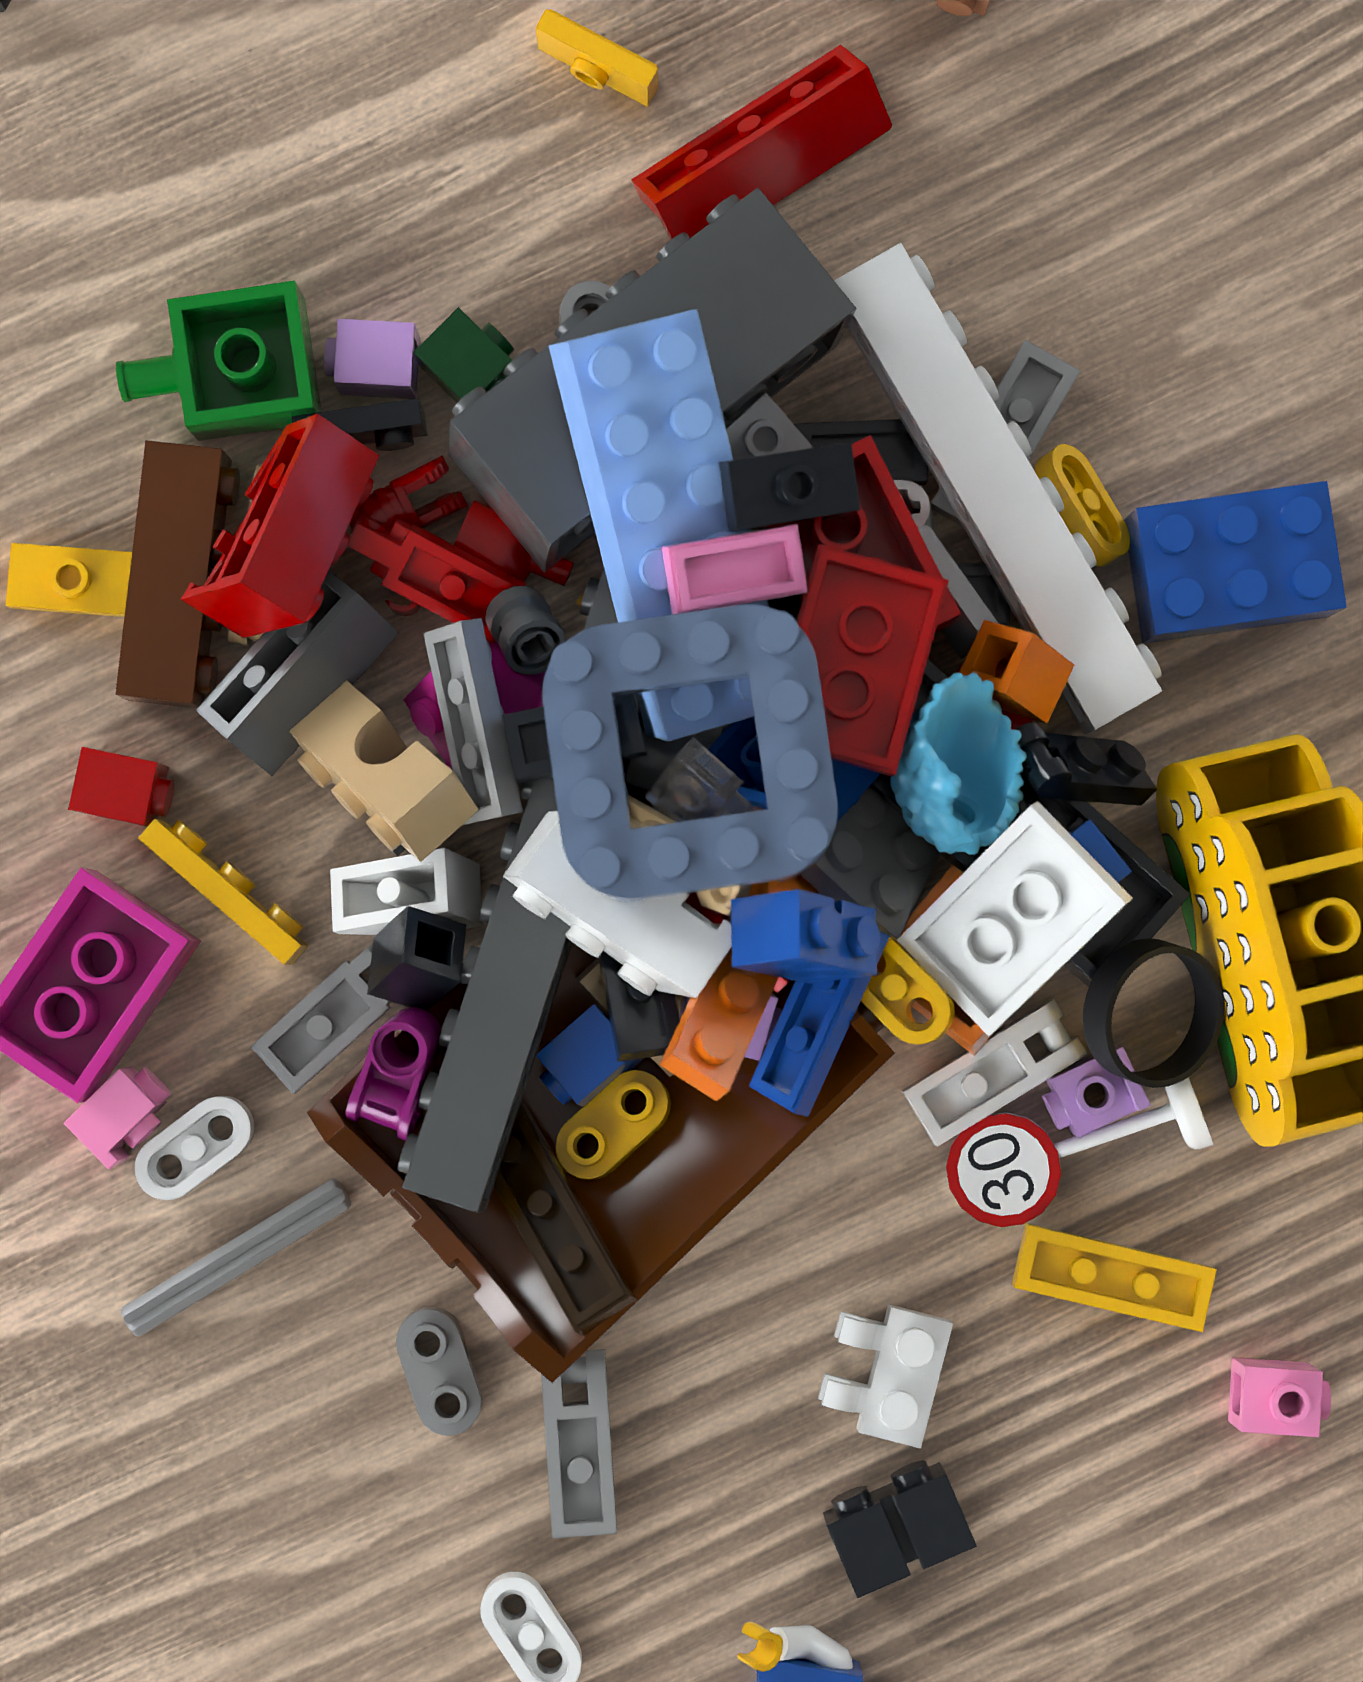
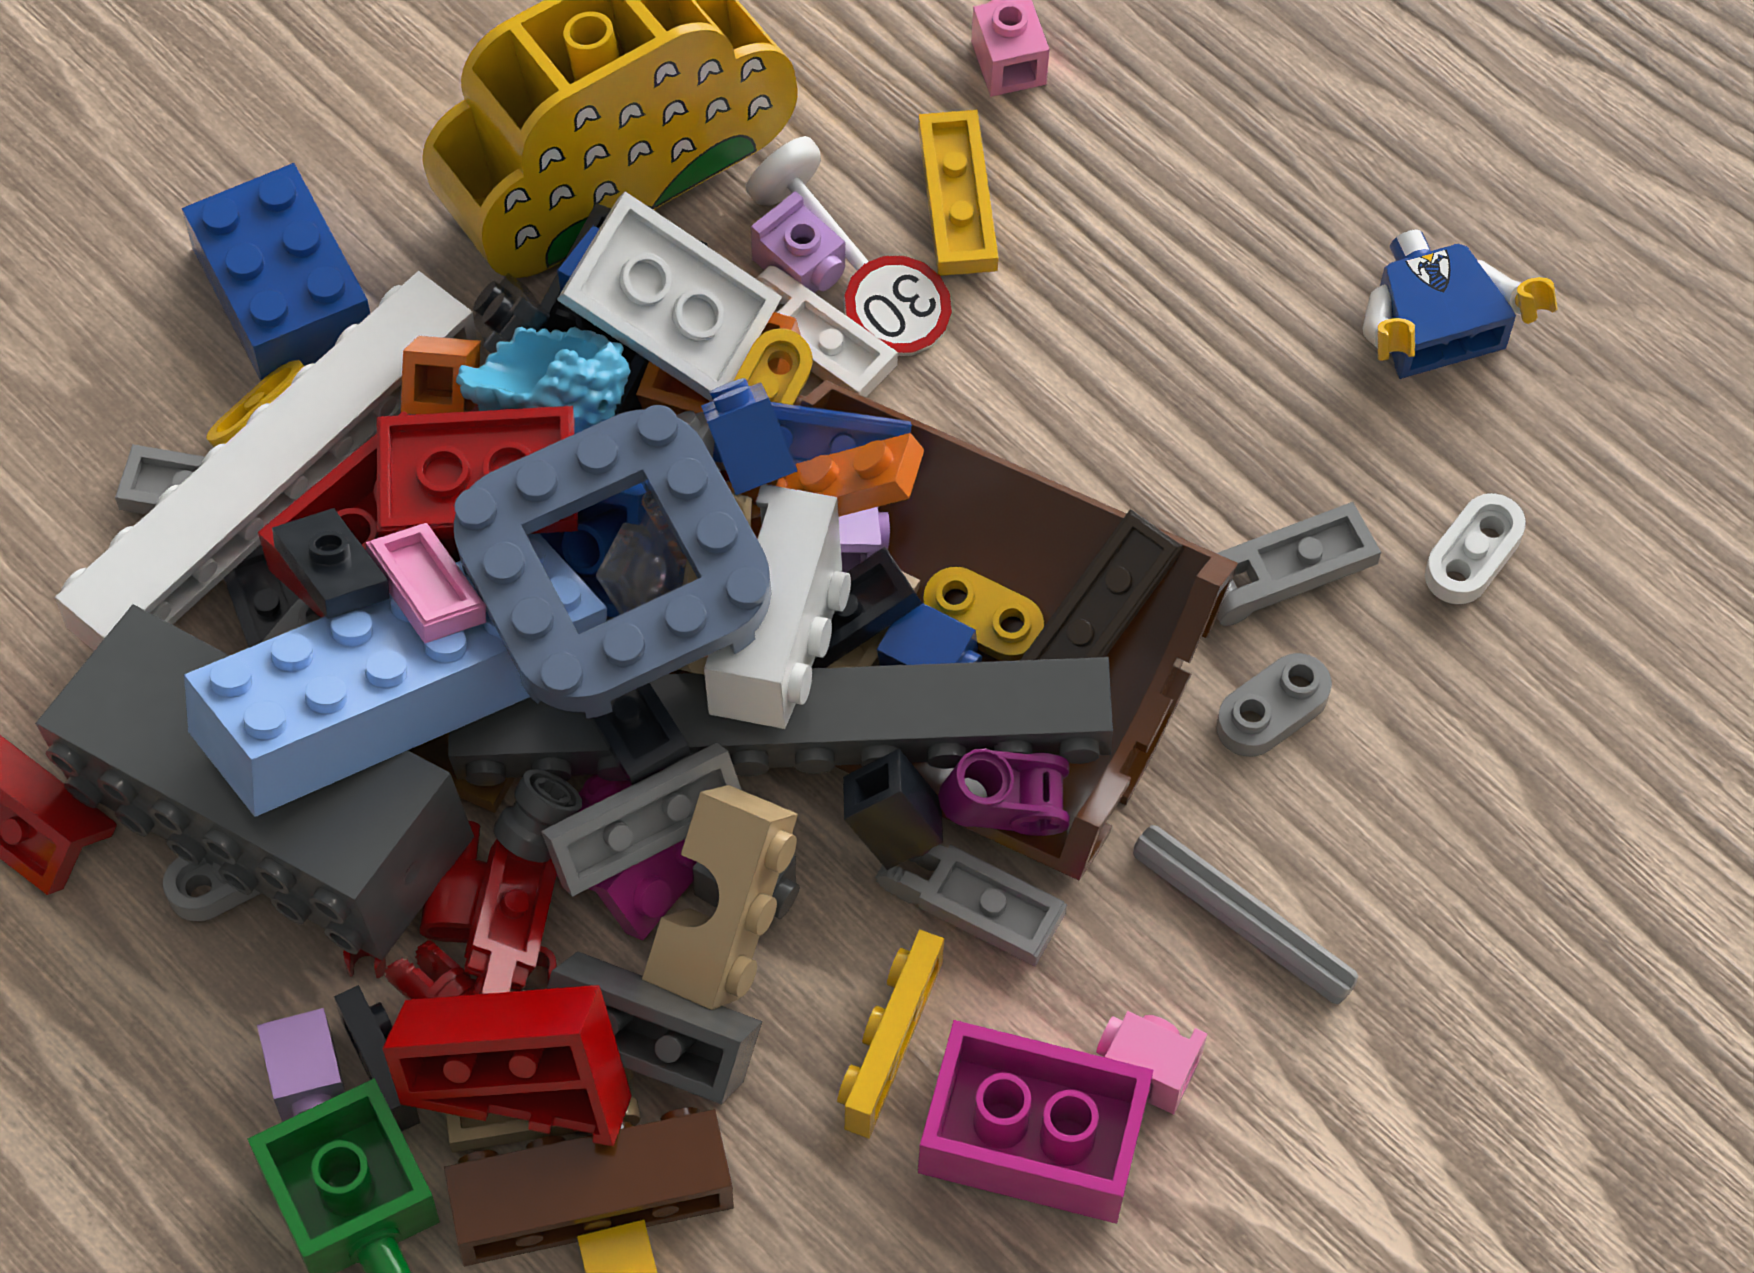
camera: 105 degrees left, 25 degrees down
(121, 787) = (826, 1166): red brick -> none
(195, 1146) = (1159, 980): white plate -> none
(375, 892) = (838, 863): white slope -> none
(464, 356) = (281, 974): dark green brick -> none
(896, 1525) = (1251, 303): black piece -> none
(902, 1376) = (1113, 330): white plate -> none
(1203, 1030) = (716, 171): black tyre -> none

